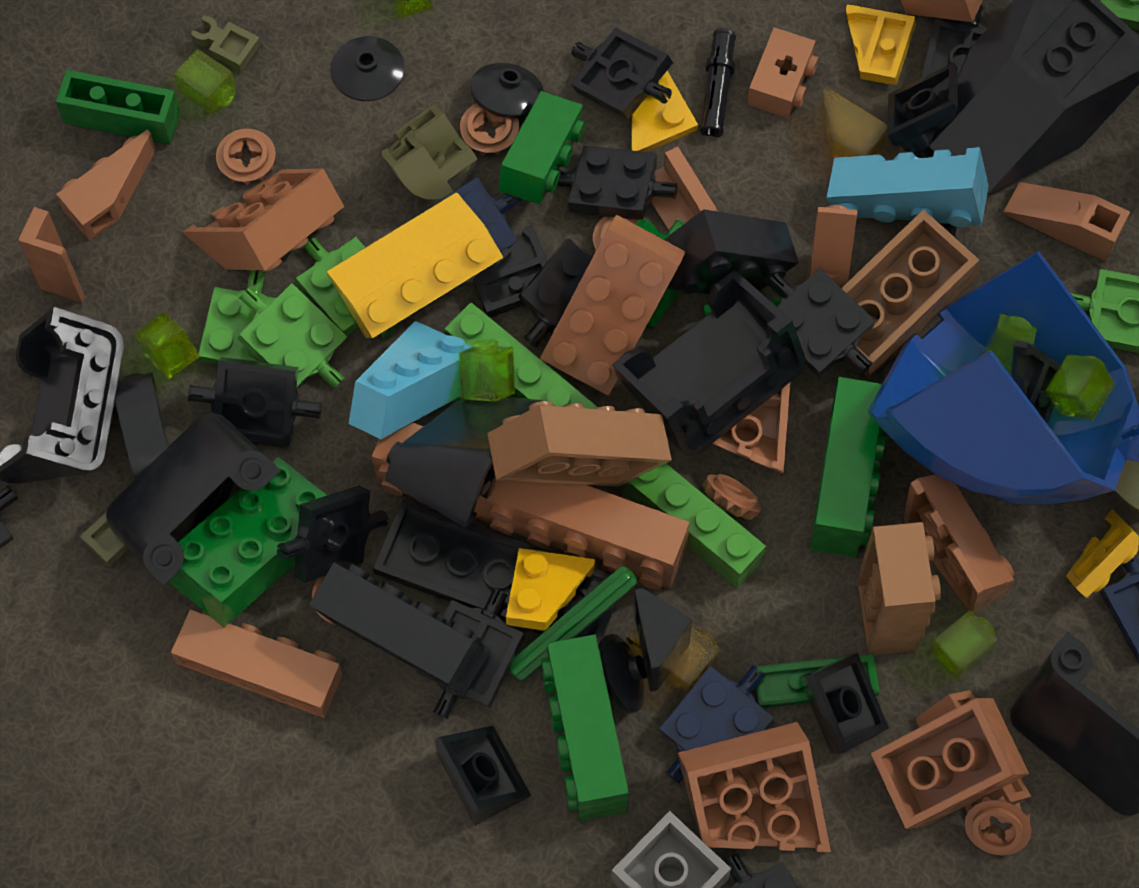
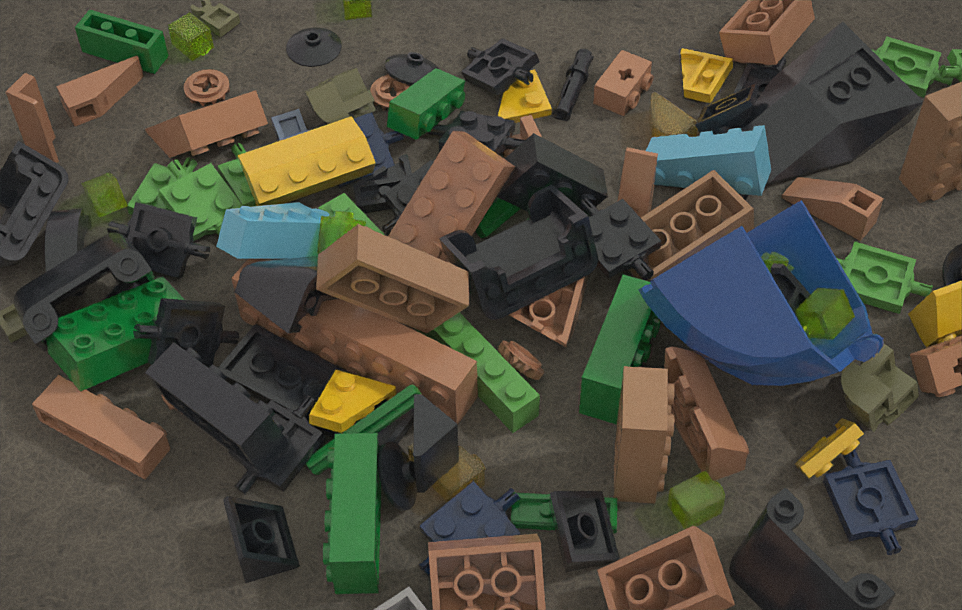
camera: 10 degrees right, 15 degrees down
(375, 210) = (288, 124): none -> sand blue bracket

